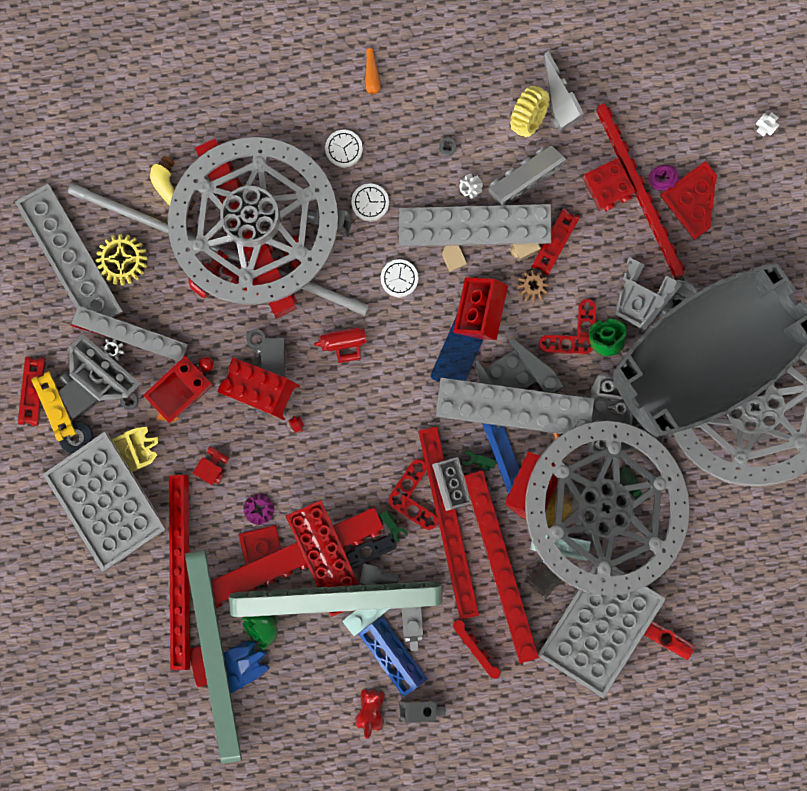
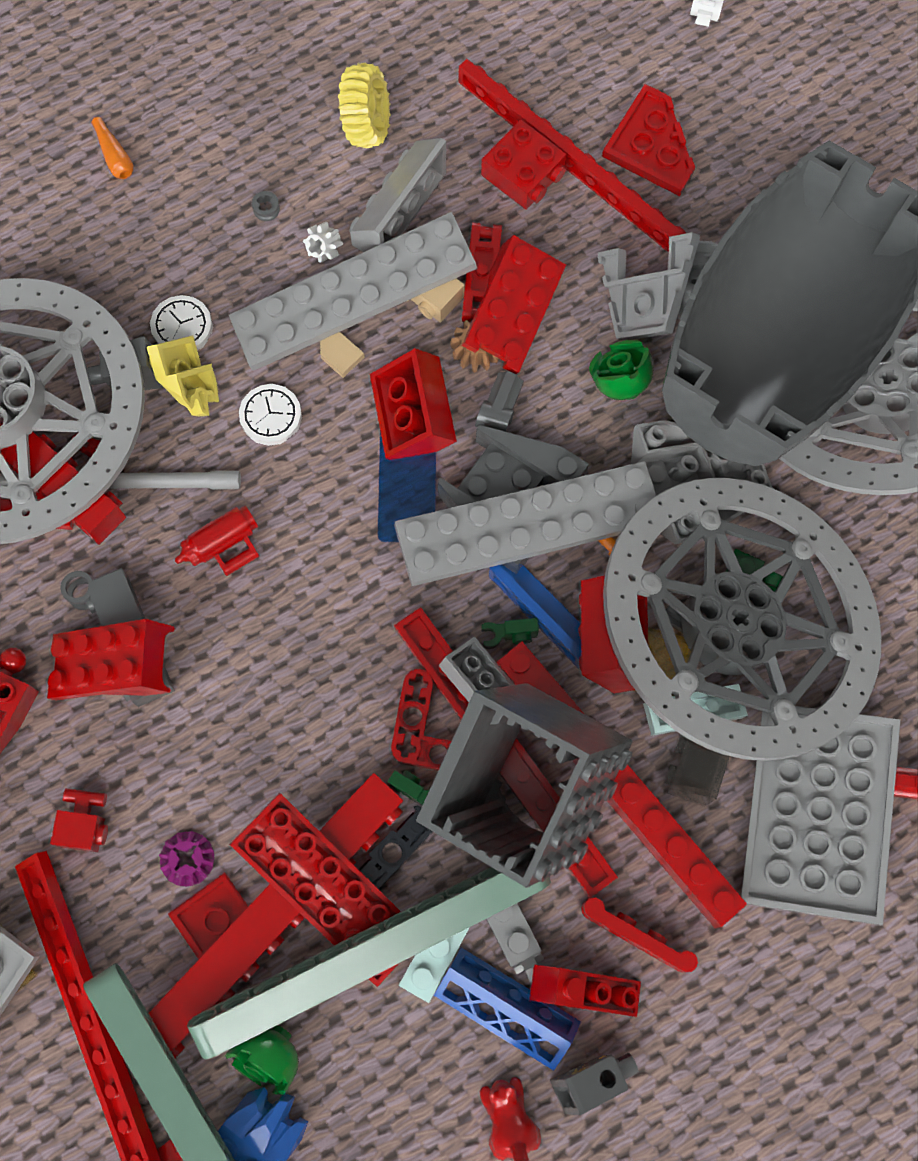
camera: 25 degrees left, 10 degrees down
(296, 424) = (195, 696): red plate -> none
(343, 148) = (111, 266): white tile -> none
(359, 237) = (181, 374): none -> light yellow plate
(372, 575) = (418, 884): dark grey axle -> none
(417, 548) = (467, 796): none -> dark grey piece
(436, 665) = (585, 990): none -> red slope
(528, 330) = (498, 409): none -> dark grey piece
(564, 105) = (411, 79): light grey wedge -> none
(564, 272) = (514, 302): none -> red piece
(581, 335) = (579, 387): red beam -> none
(659, 173) = (586, 129): magenta gear -> none

